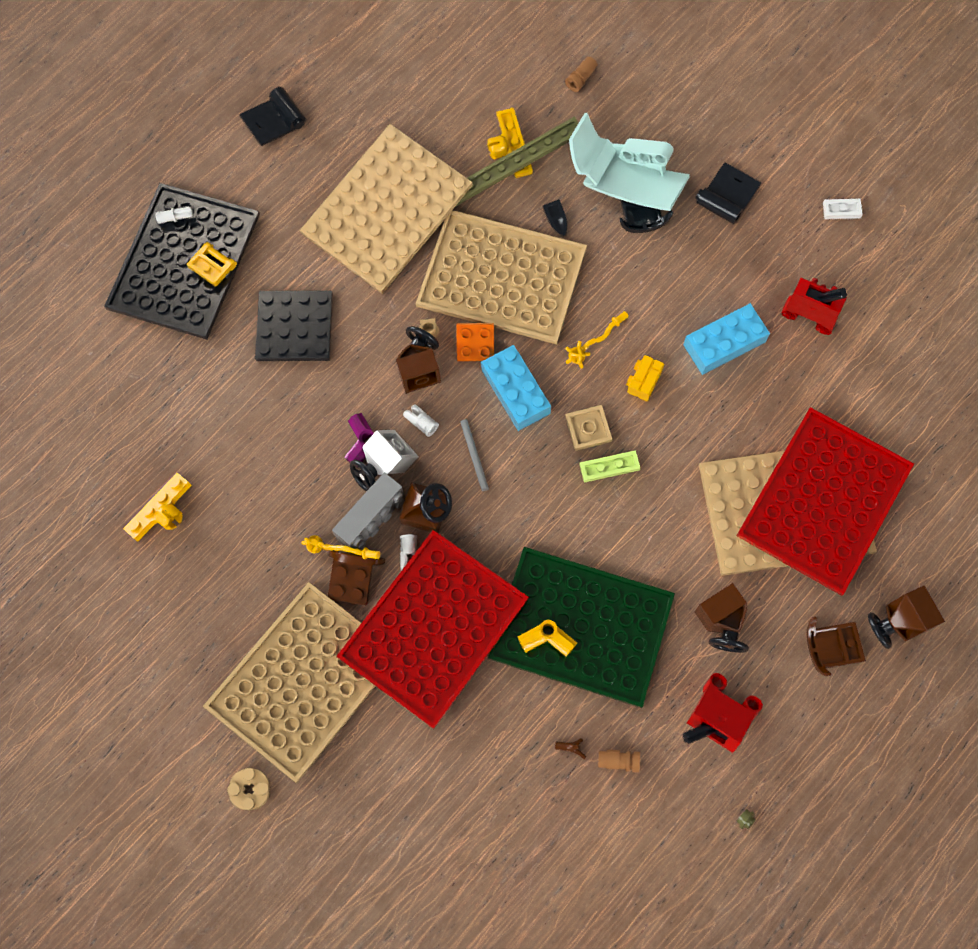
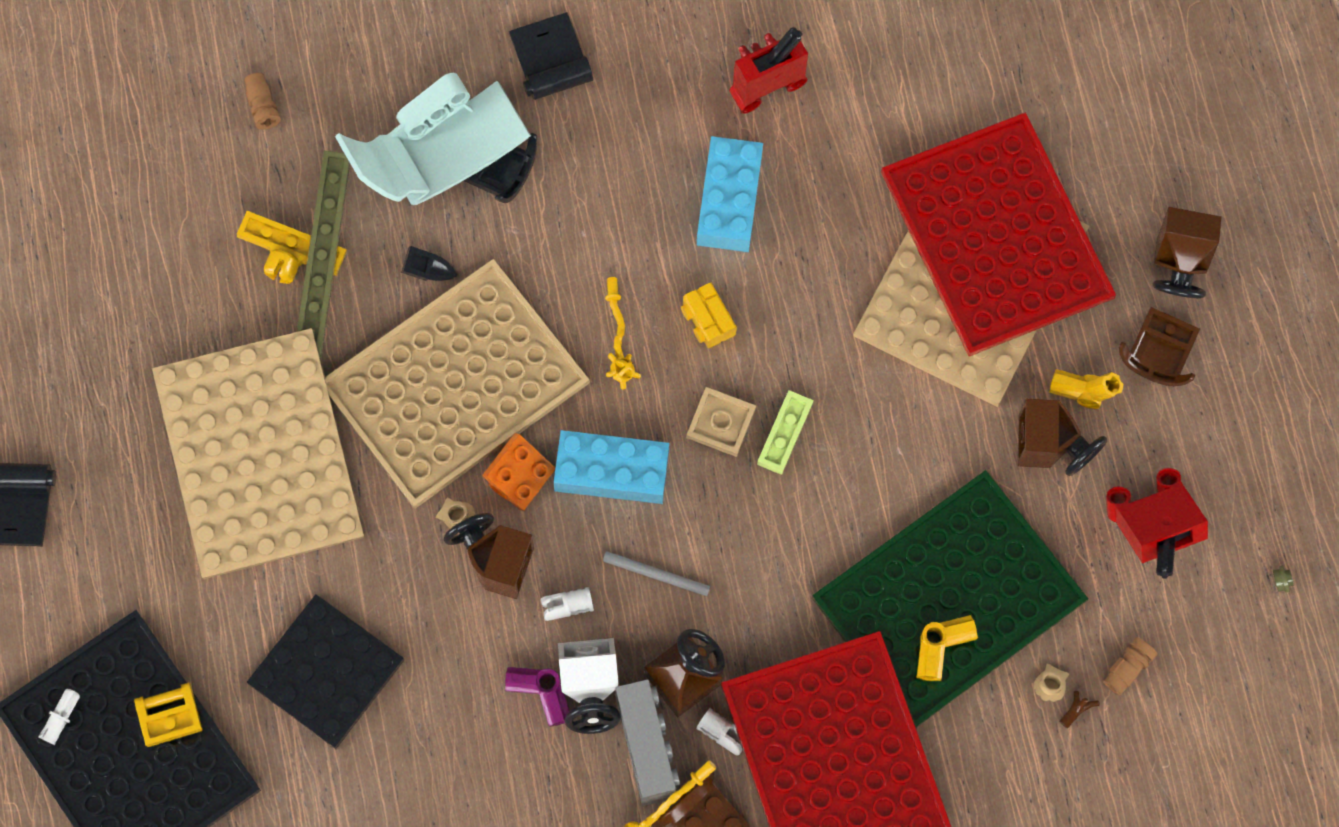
camera: 60 degrees left, 0 degrees up
(574, 720) = (1051, 684): none -> tan animal
(771, 619) = (1086, 389): none -> yellow piece

